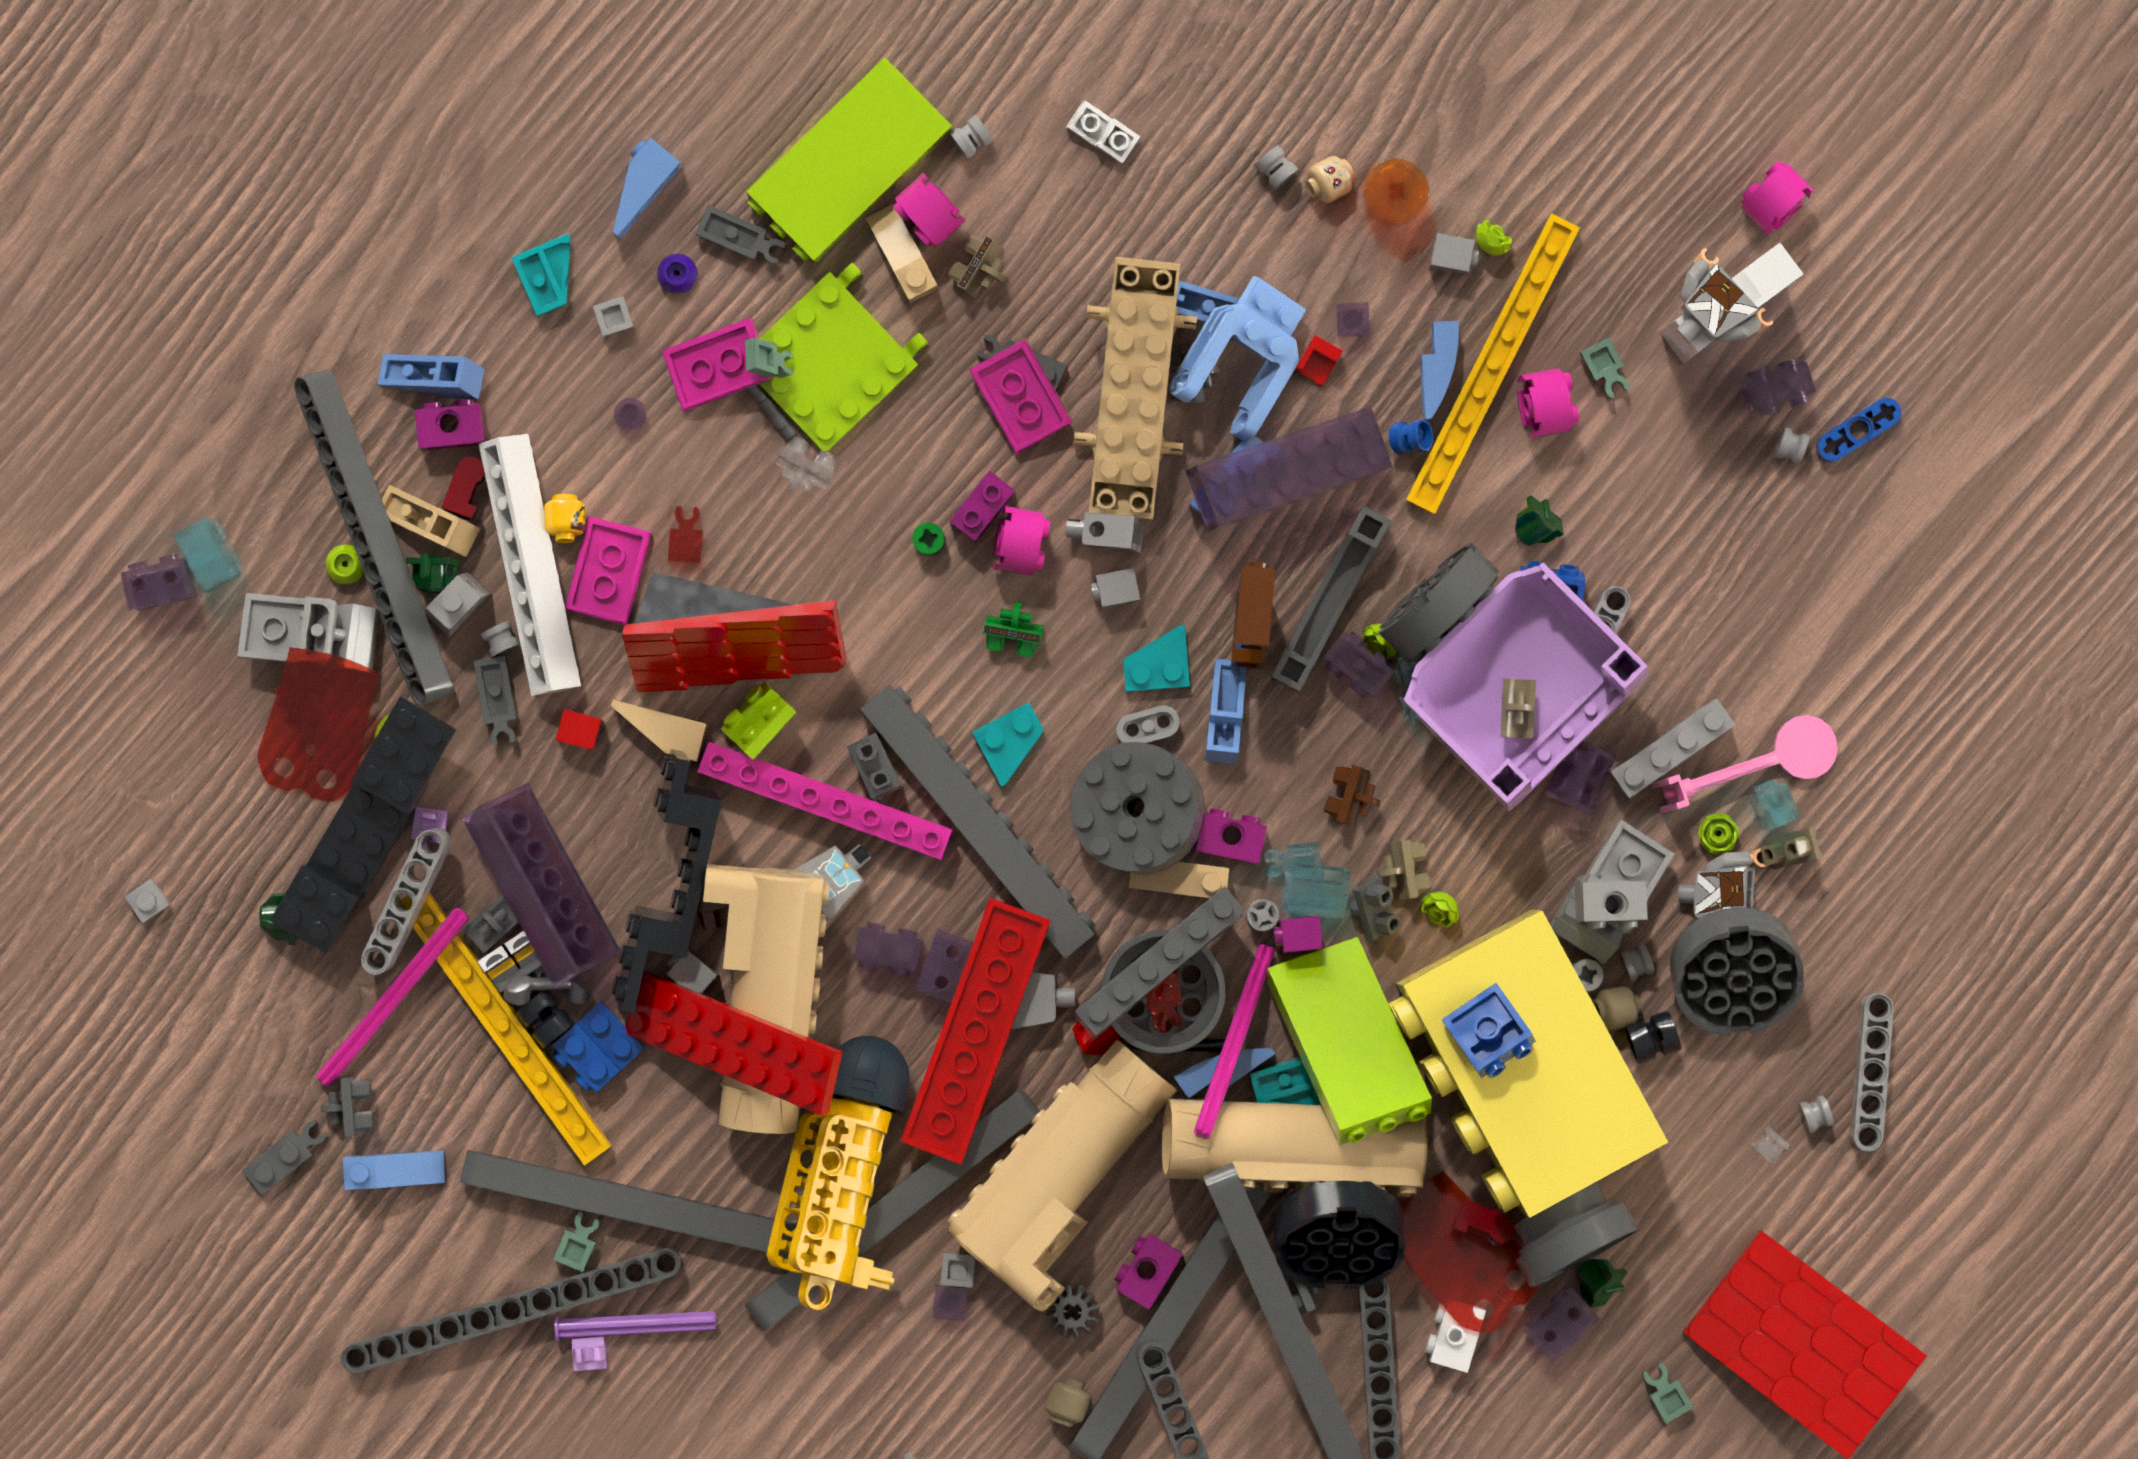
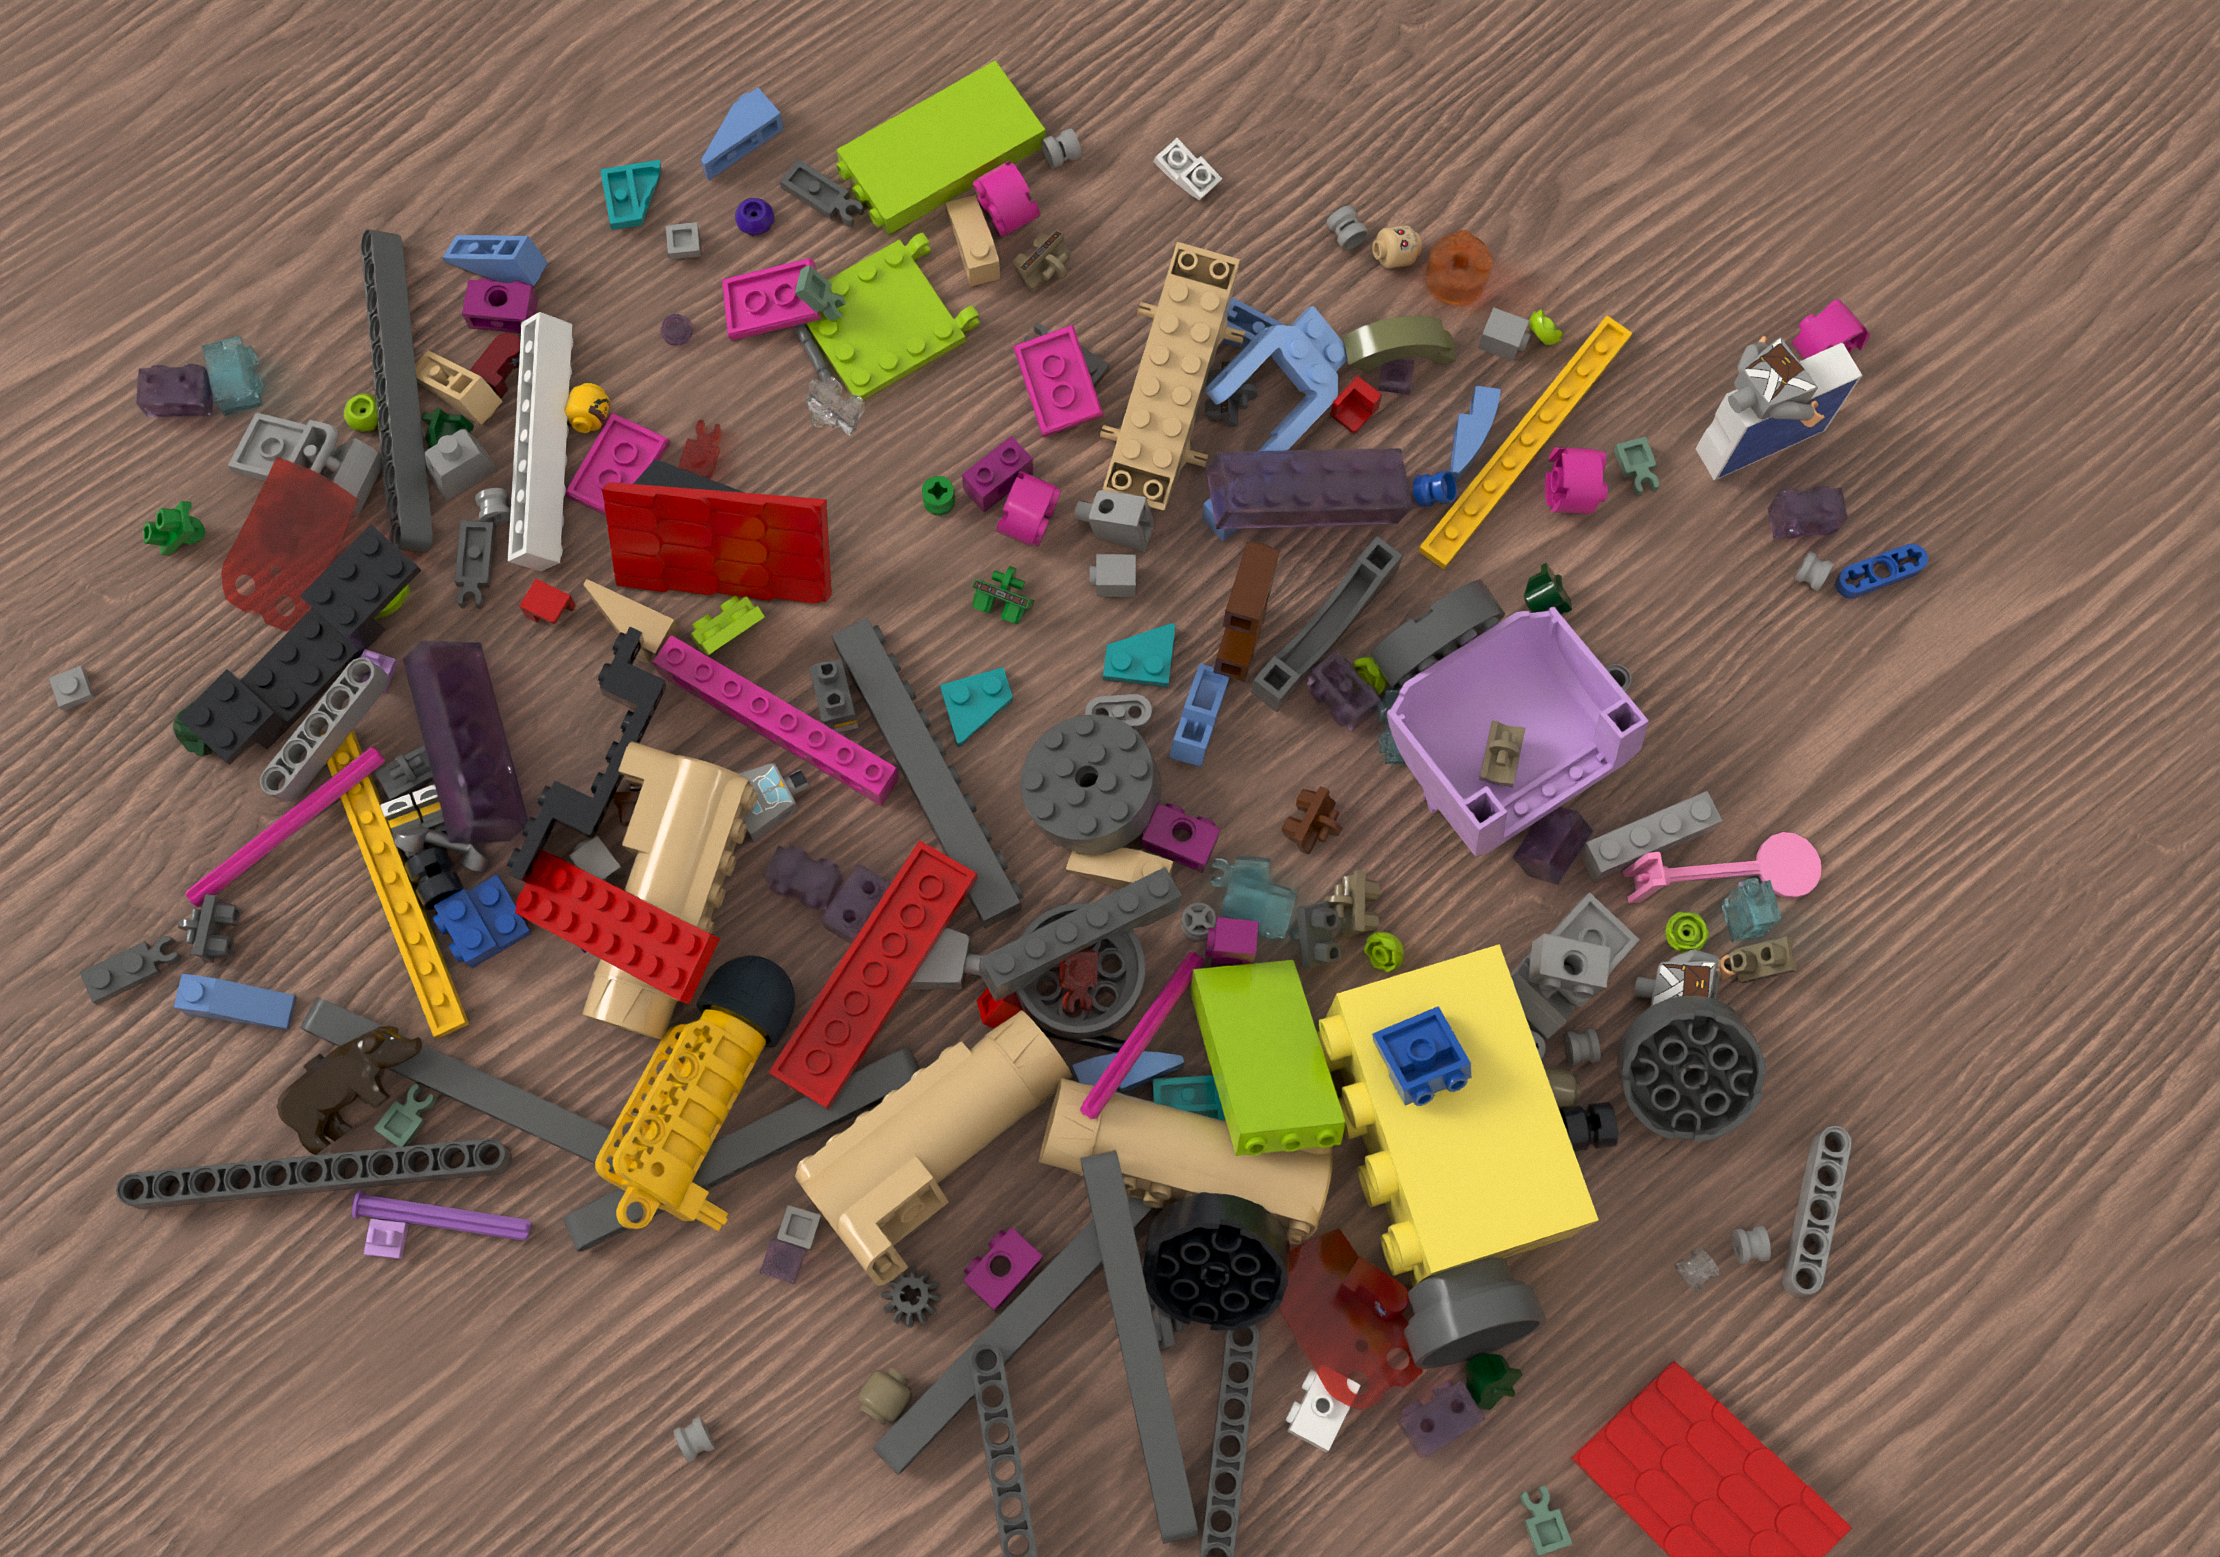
camera: 10 degrees right, 15 degrees down
(200, 727) = (173, 528): none -> green hips
(510, 1227) = (337, 1080): none -> dark brown animal
(1350, 291) = (1398, 339): none -> olive arch

